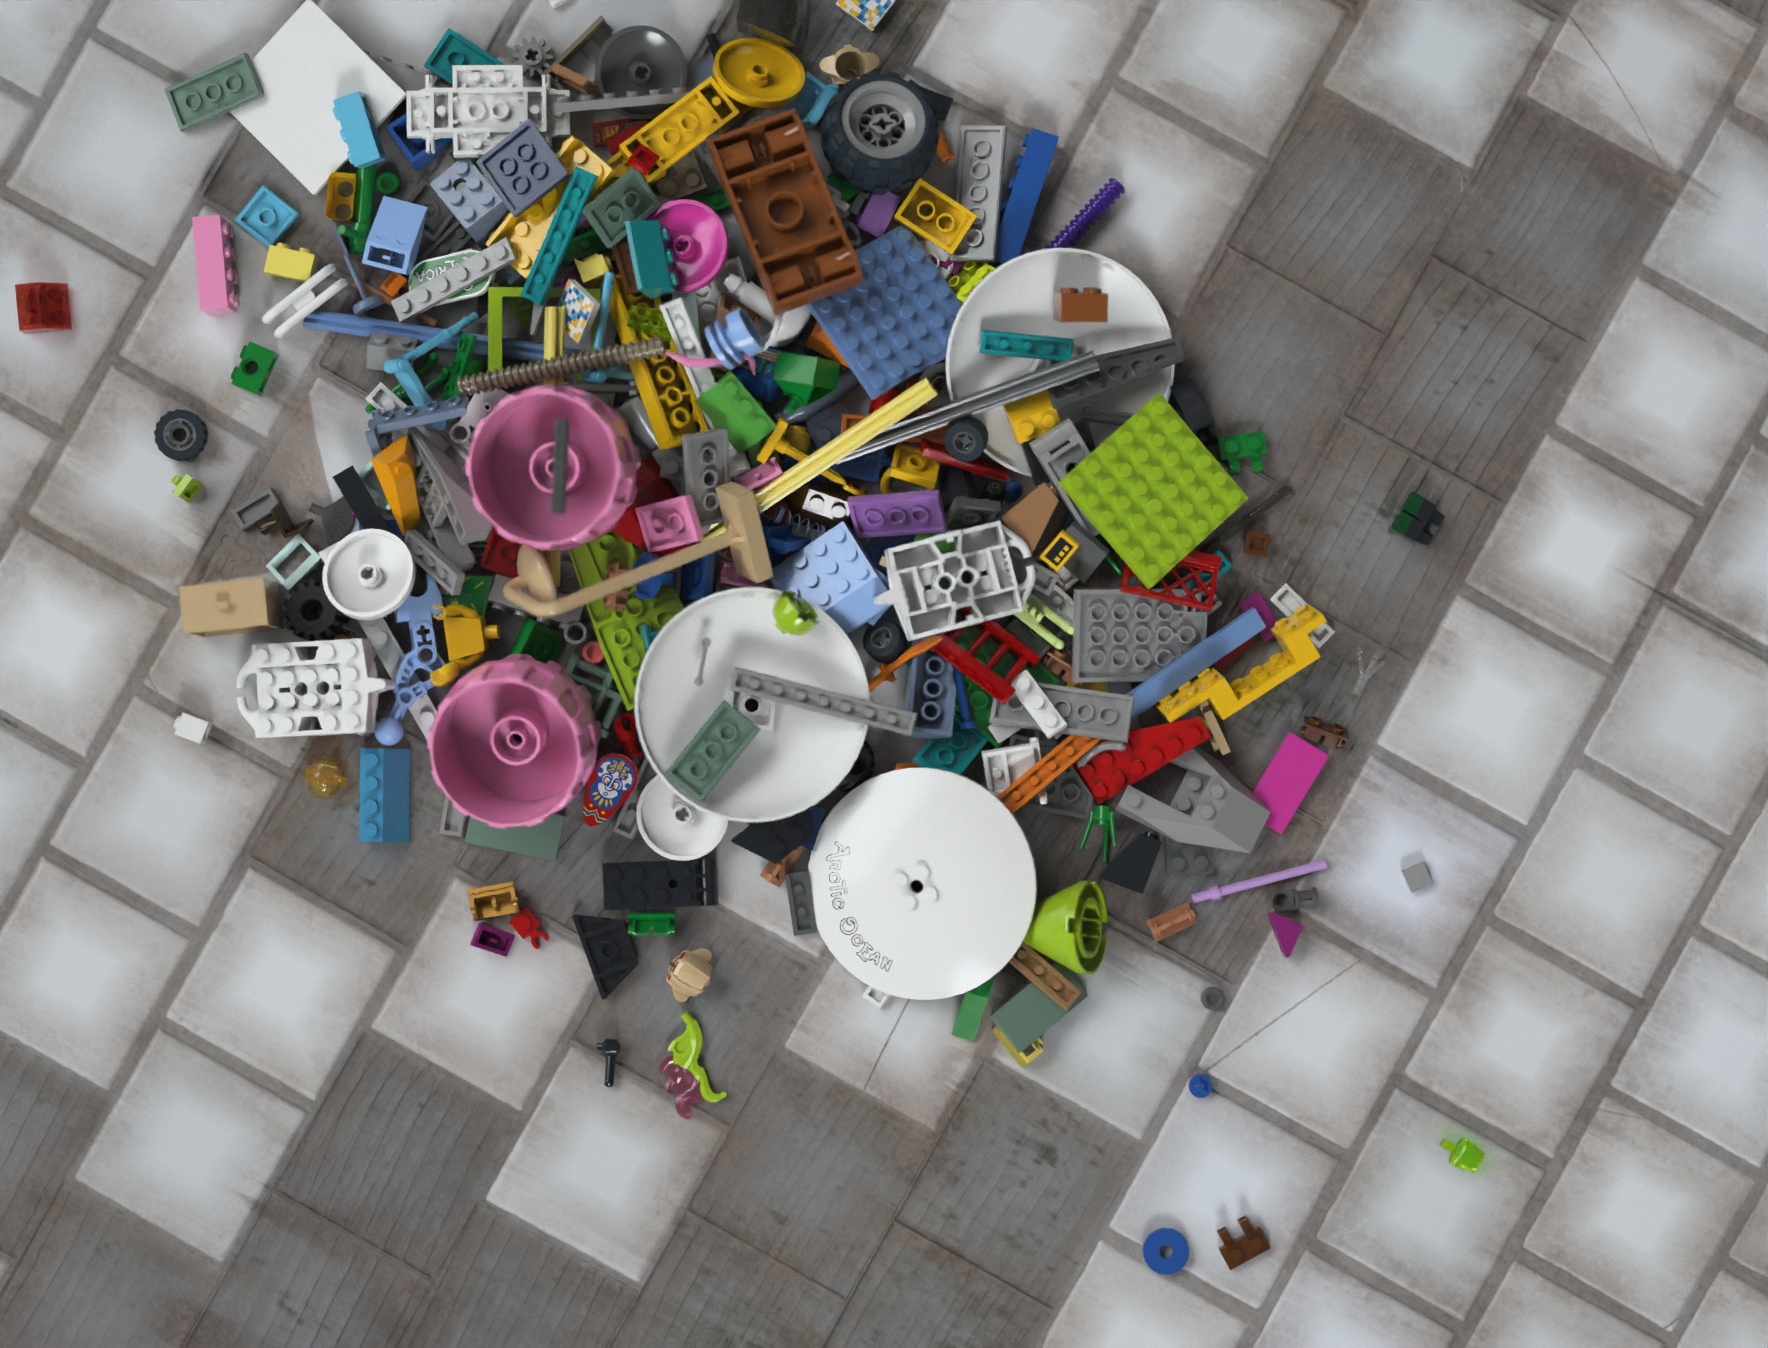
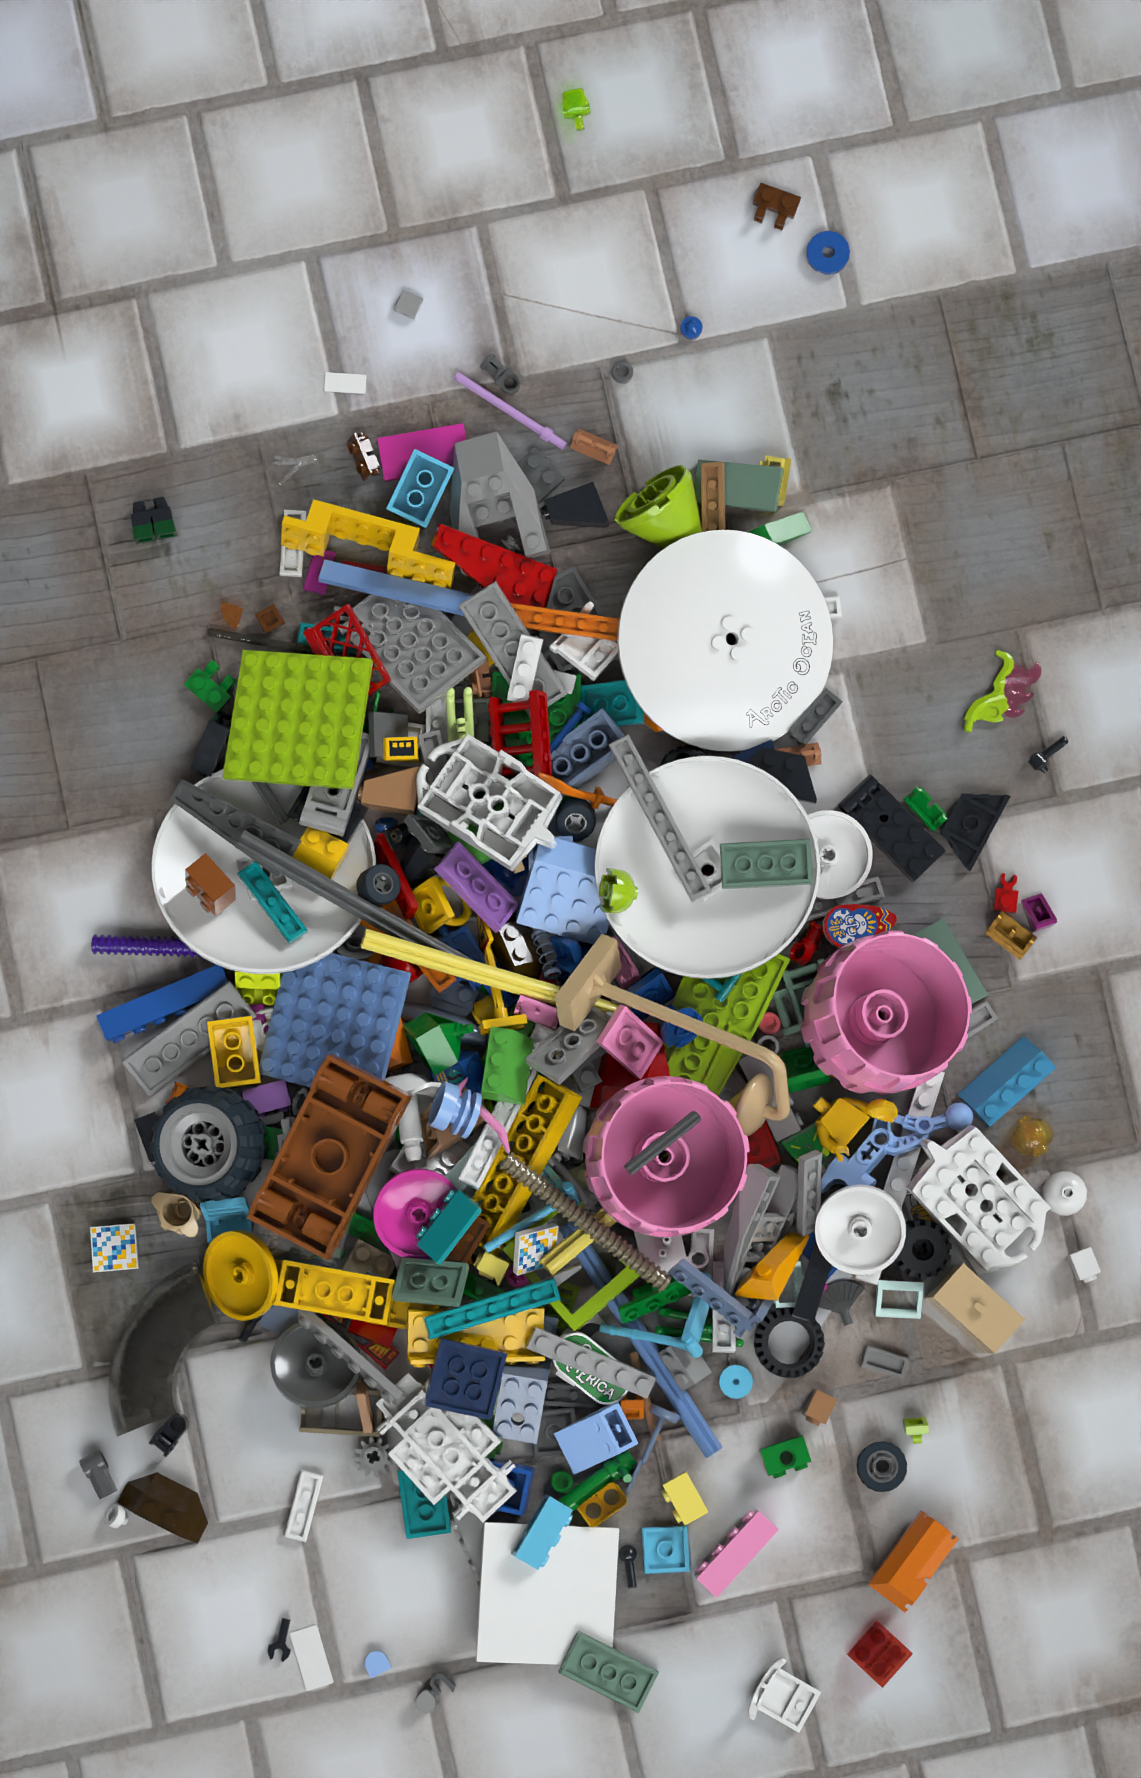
camera: 130 degrees left, 5 degrees down
(77, 207) = (783, 1697): none -> white piece
(88, 393) = (912, 1560): none -> orange brick
(264, 771) = (1065, 1202): none -> white cylinder
(266, 425) = (819, 1407): none -> medium nougat brick
(283, 522) = (877, 1334): dark brown bracket -> none
(288, 185) = (628, 1555): none -> black bar
(304, 300) = (702, 1462): white piece -> none
(321, 425) = (773, 1365): none -> black tyre
(344, 382) = (736, 1381): none -> medium azure piece
(617, 600) = (701, 1051): nougat hinge -> none
(643, 159) = (381, 1296): red tile -> none
(648, 328) = (501, 1185): clear neon green slope -> none
(689, 973) = (935, 750): tan piece -> none
(706, 643) = (693, 937): light grey hinge -> none
(1099, 747) = (514, 598): light grey piece -> none
(1104, 818) = (562, 555): green plant -> none
(1149, 783) = (509, 544): none -> light grey bush
(1217, 741) = (426, 541): tan plate -> none
(1256, 751) = (420, 488): none -> medium azure brick
(1285, 931) = (530, 359): magenta slope -> none
(1286, 517) = (231, 614): none -> clear orange tile
(1397, 770) = (345, 383): none -> white sticker

